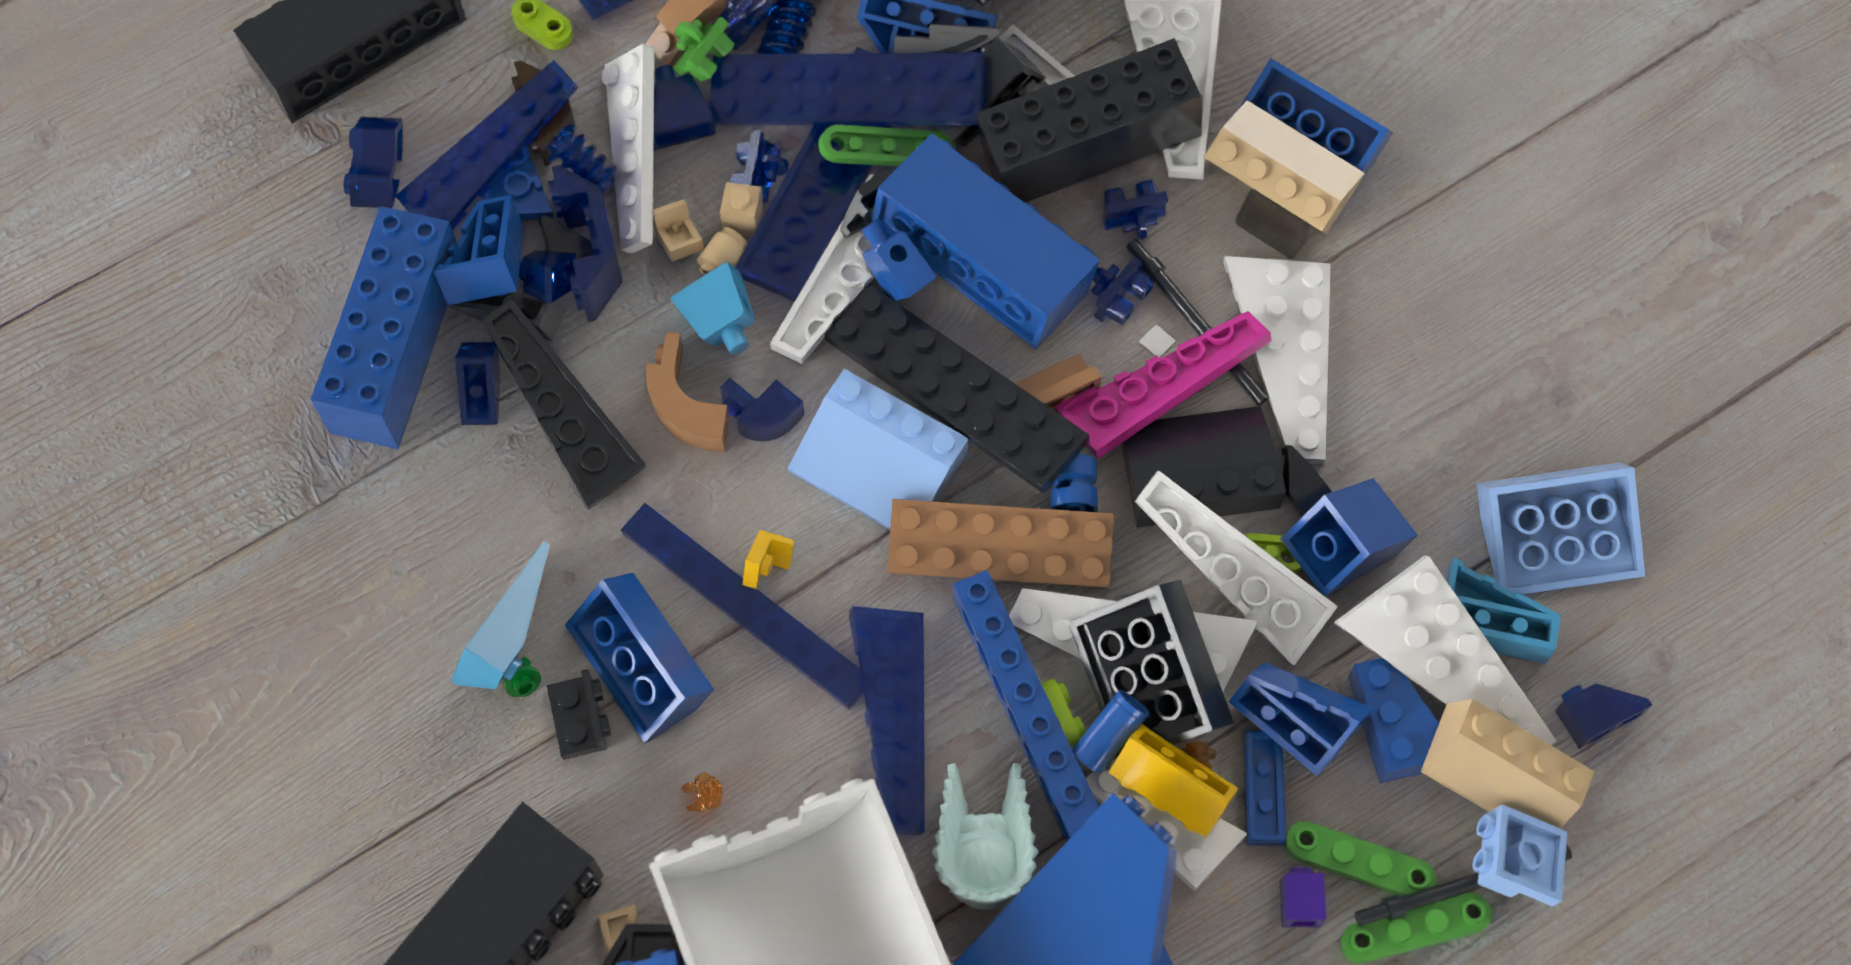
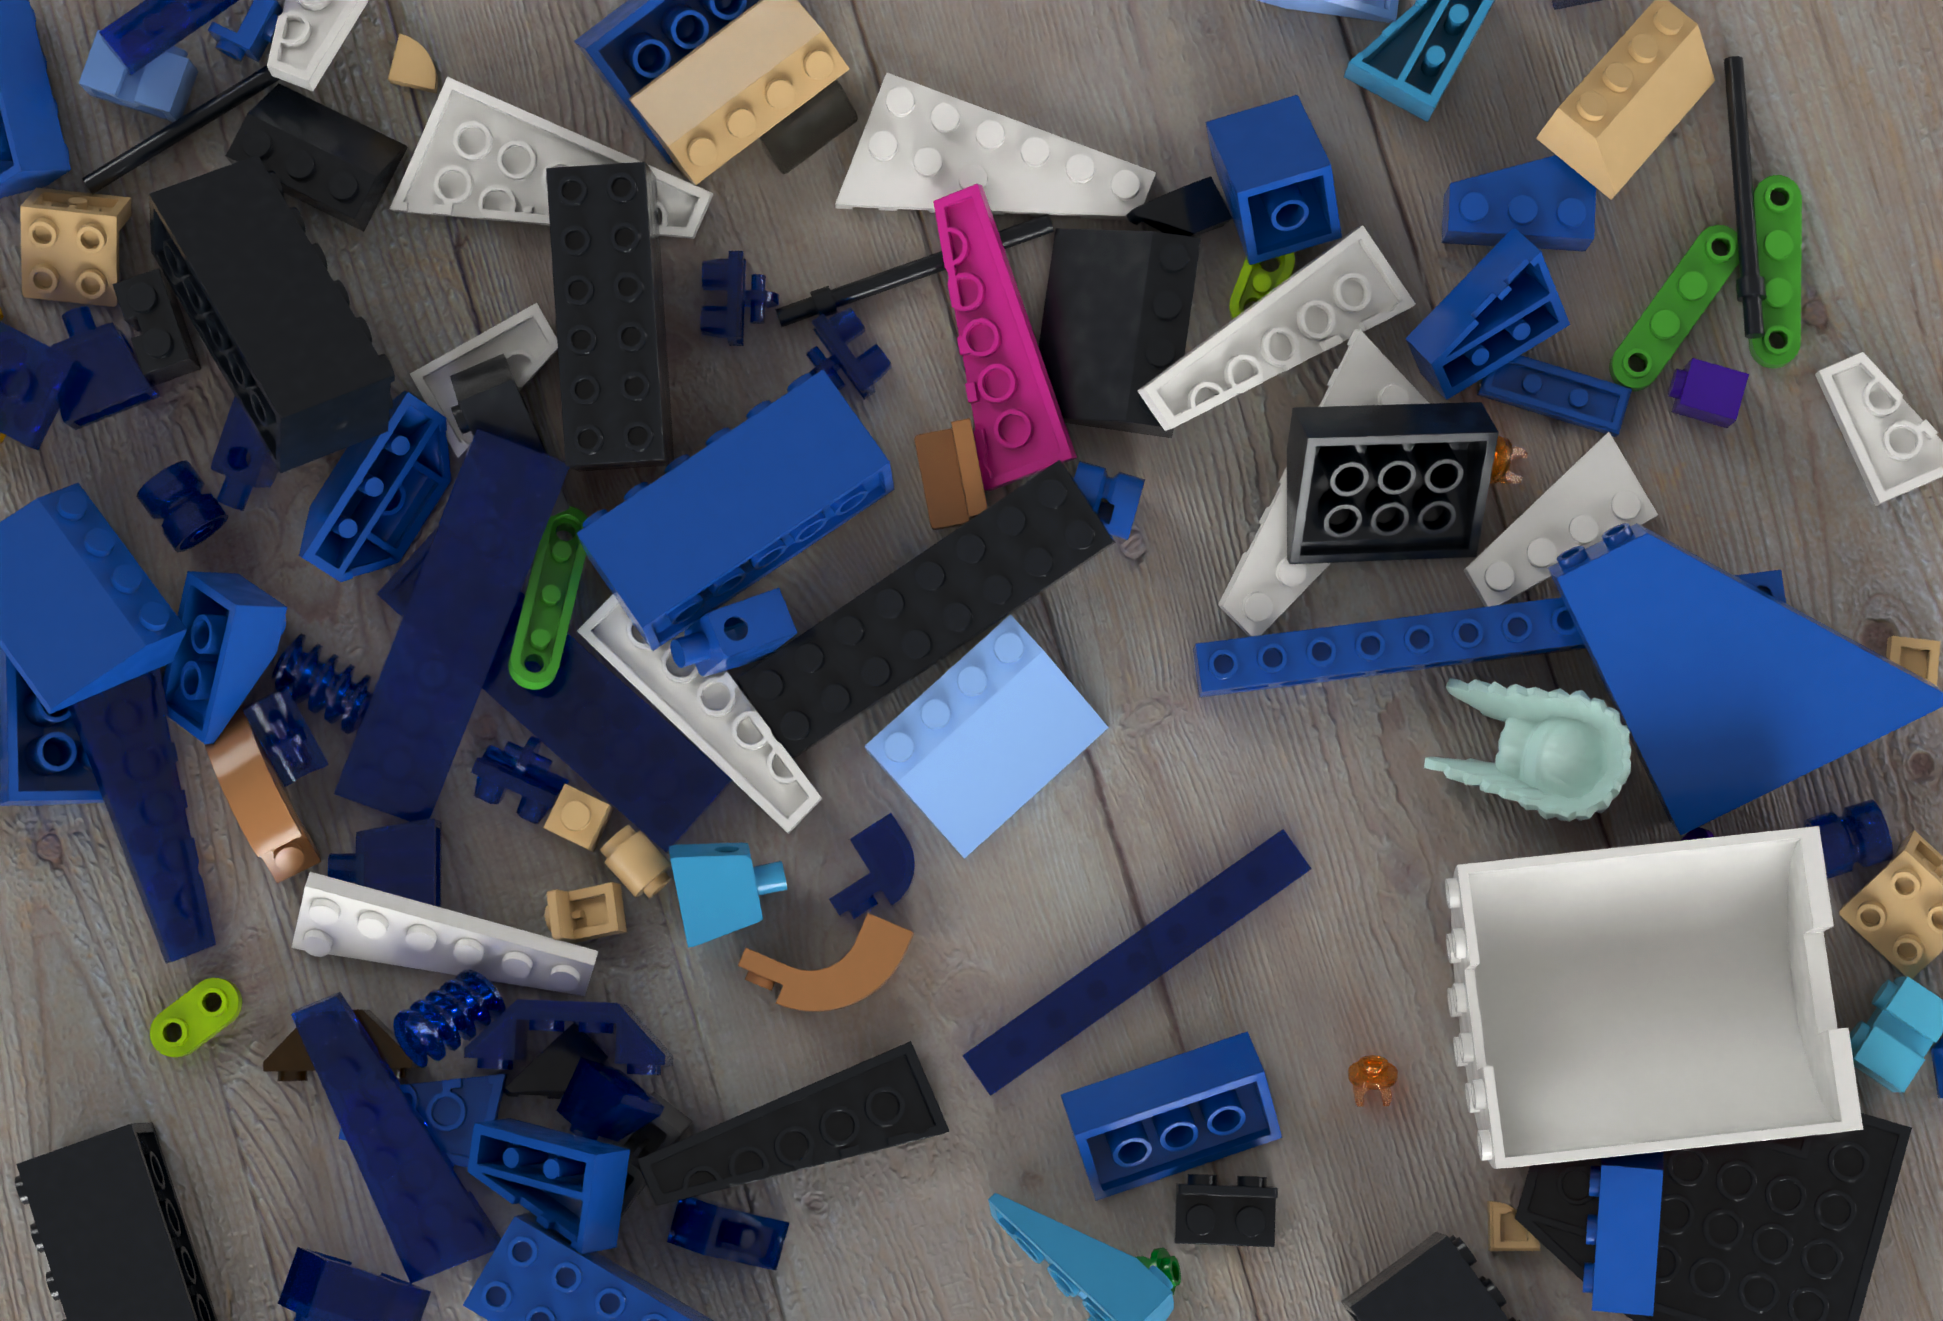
camera: 70 degrees left, 15 degrees up
(699, 43) = (323, 809): bright green hips -> none
(765, 552) = (1078, 916): yellow bracket -> none
(859, 211) = (639, 663): black slope -> none
(893, 686) = (1297, 805): clear blue wing -> none
(947, 39) = (425, 471): dark grey slope -> none
(1004, 540) = (1152, 616): medium nougat plate -> none
(1059, 700) = (1377, 606): lime plate -> none
(1110, 731) = (1450, 556): blue pin -> none
(1157, 341) = (923, 329): white sticker -> none
(1173, 781) = (1533, 499): yellow brick -> none
(1437, 645) = (1461, 122): white wing -> none
(1521, 855) = (1737, 118): light blue plate -> none

